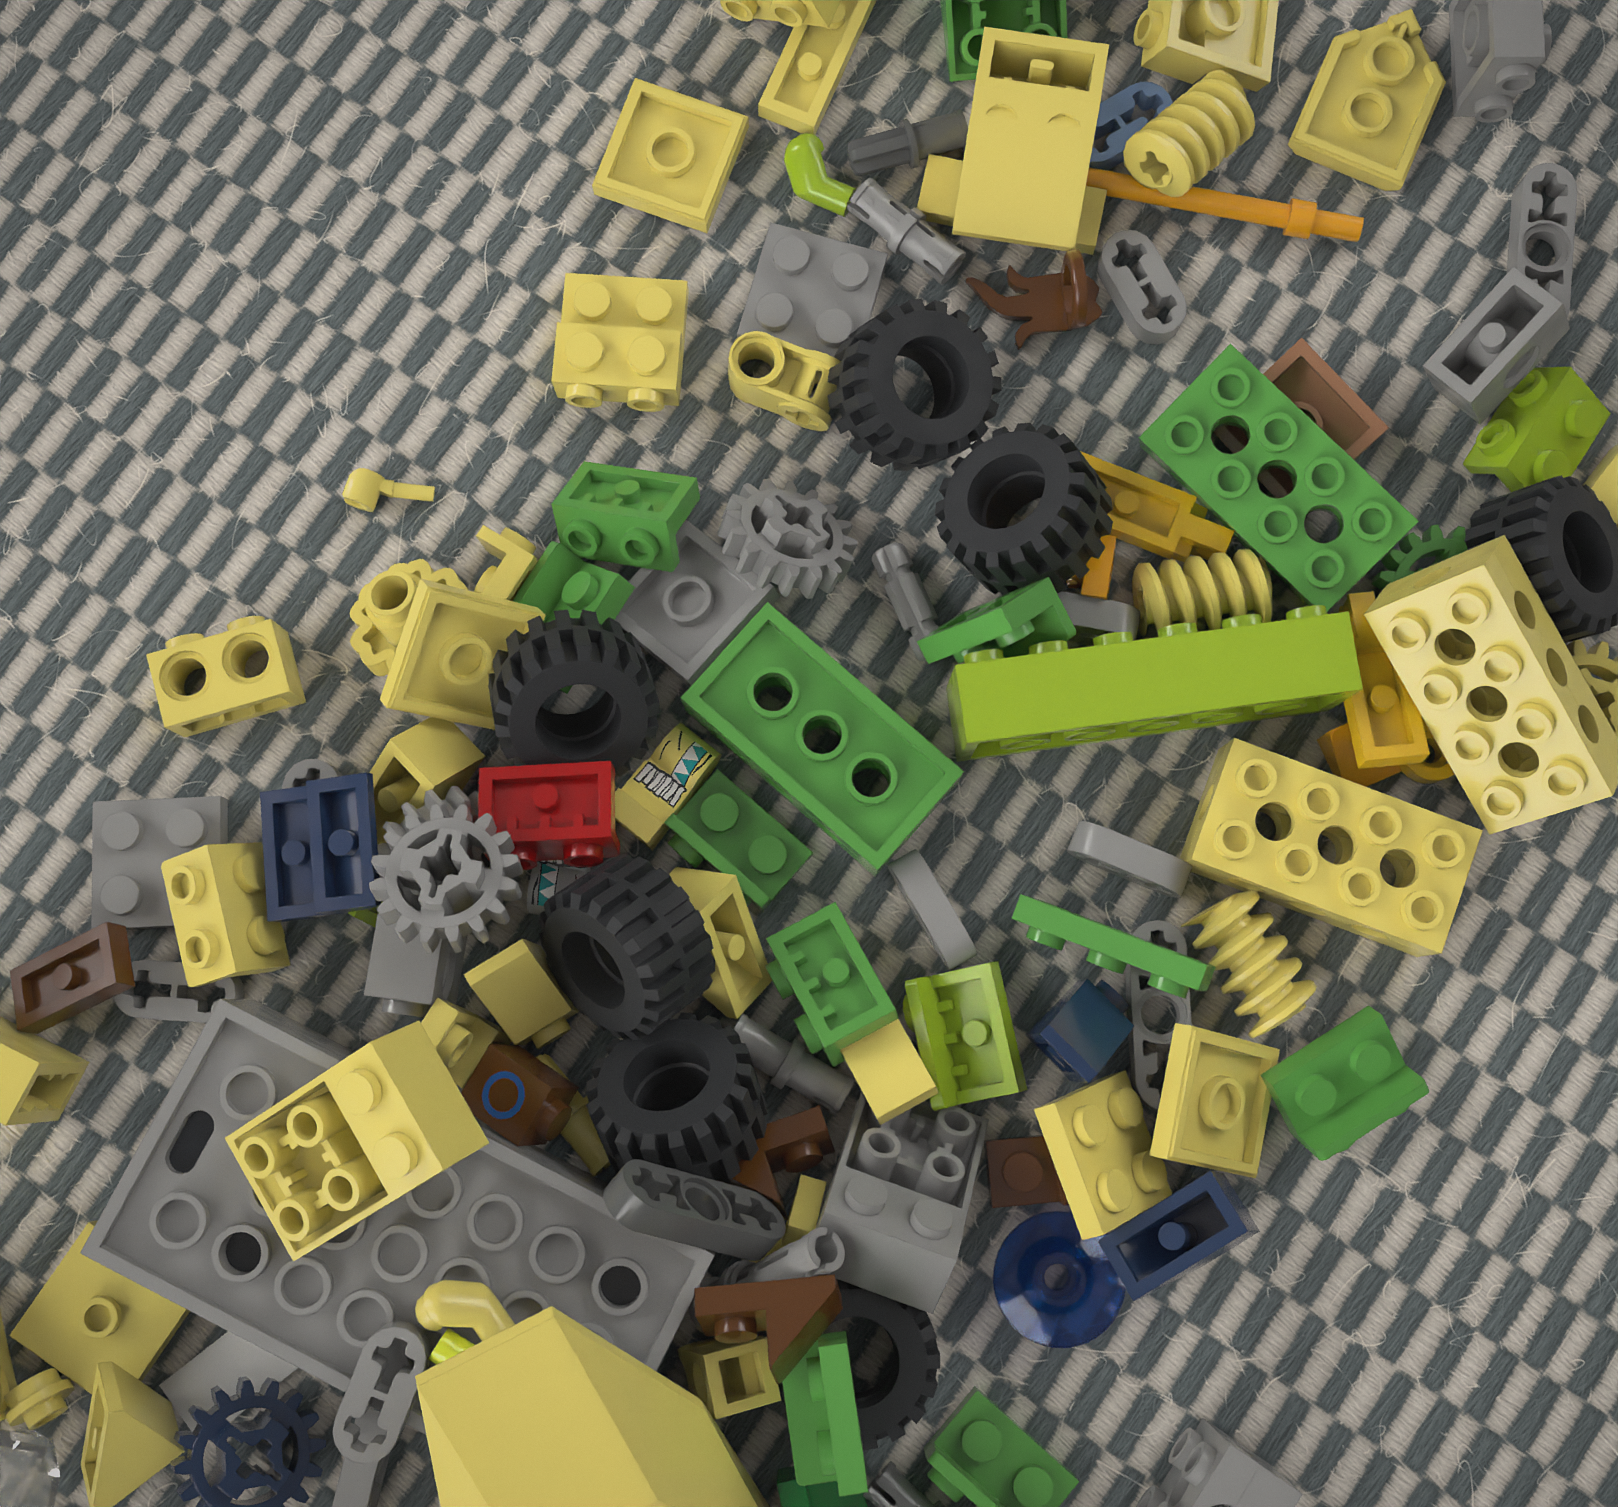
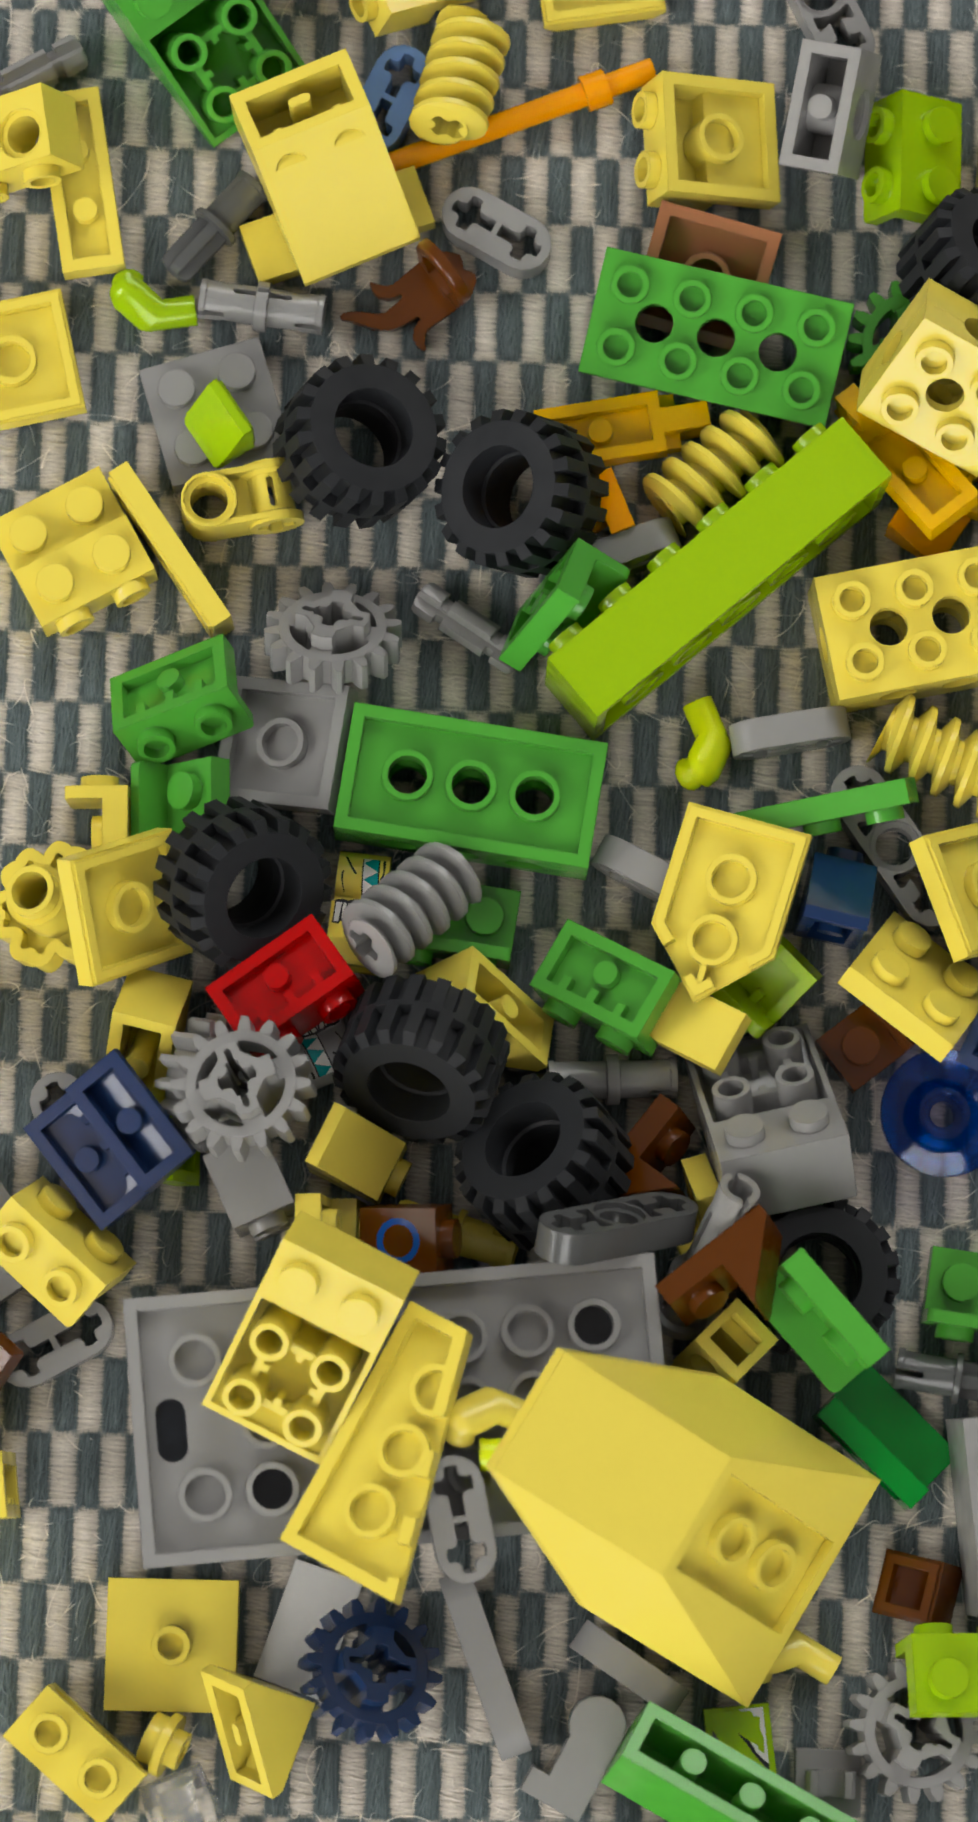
camera: 35 degrees left, 0 degrees up
(332, 1306) = (382, 1465): none -> light yellow wing
(698, 805) = (410, 907): none -> light grey piece
(699, 384) = (170, 551): none -> light yellow tile
(805, 303) = (219, 425): none -> lime slope
(984, 971) = (727, 896): none -> light yellow tile
(1053, 829) = (709, 749): none -> neon yellow arm
(1371, 314) = (707, 141): none -> light yellow plate

